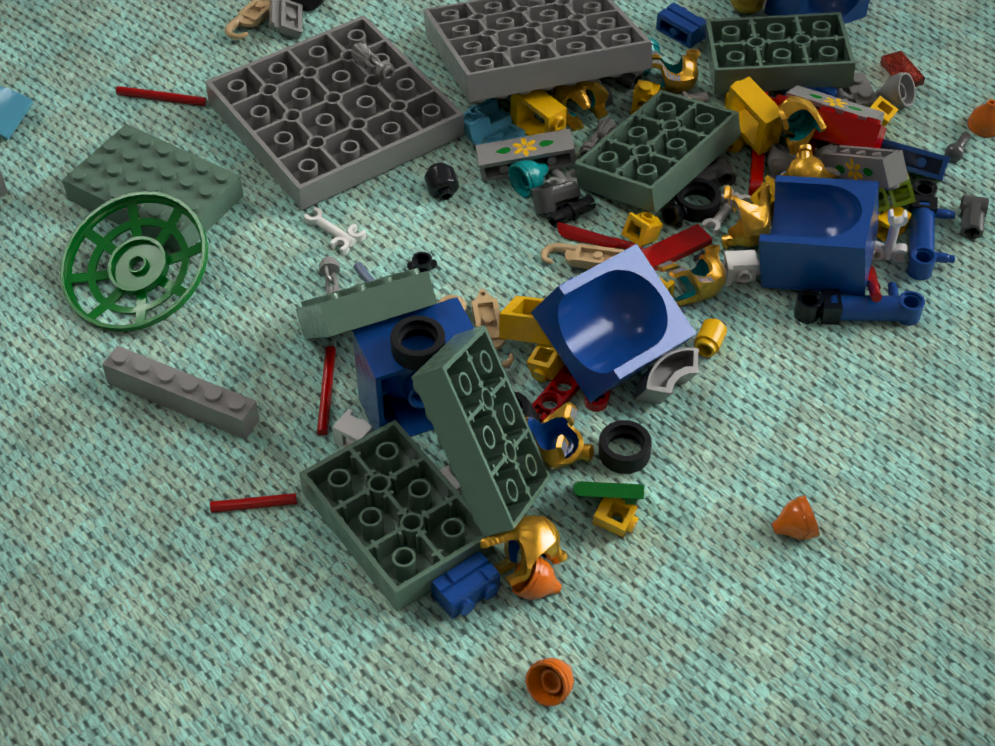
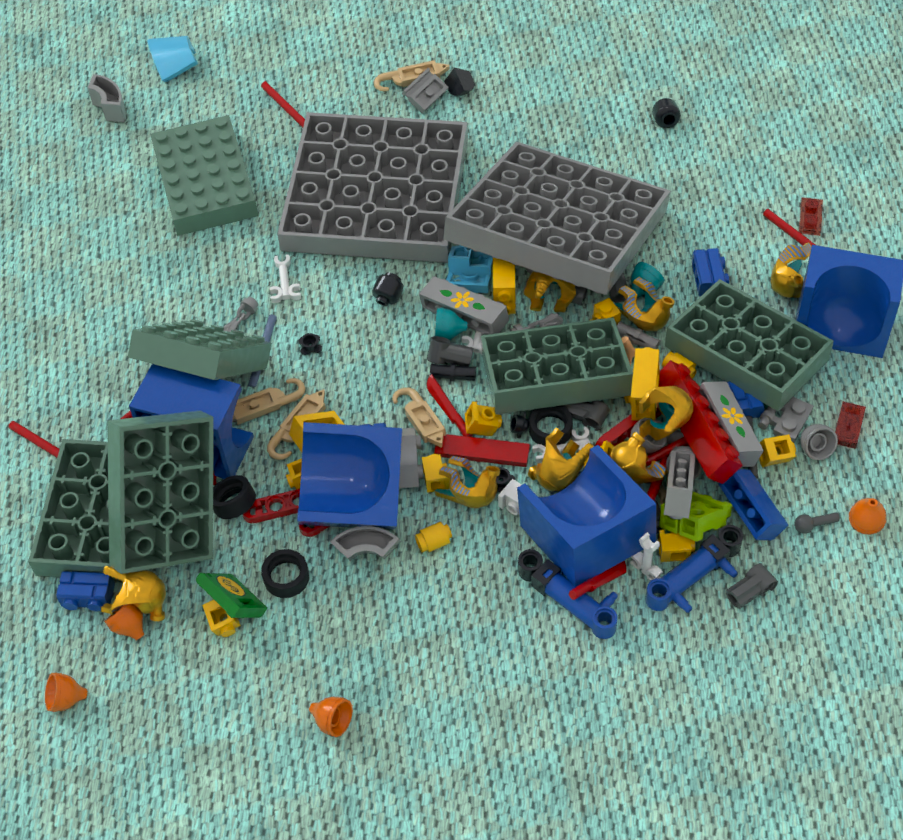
camera: 45 degrees right, 5 degrees up
(126, 256) = (137, 214): green dish -> none
(181, 392) = (69, 335): light grey brick -> none
(362, 53) = (425, 175): light grey piece -> none
(416, 326) = (169, 385): black tyre -> none
(558, 439) = (238, 535): piece -> none

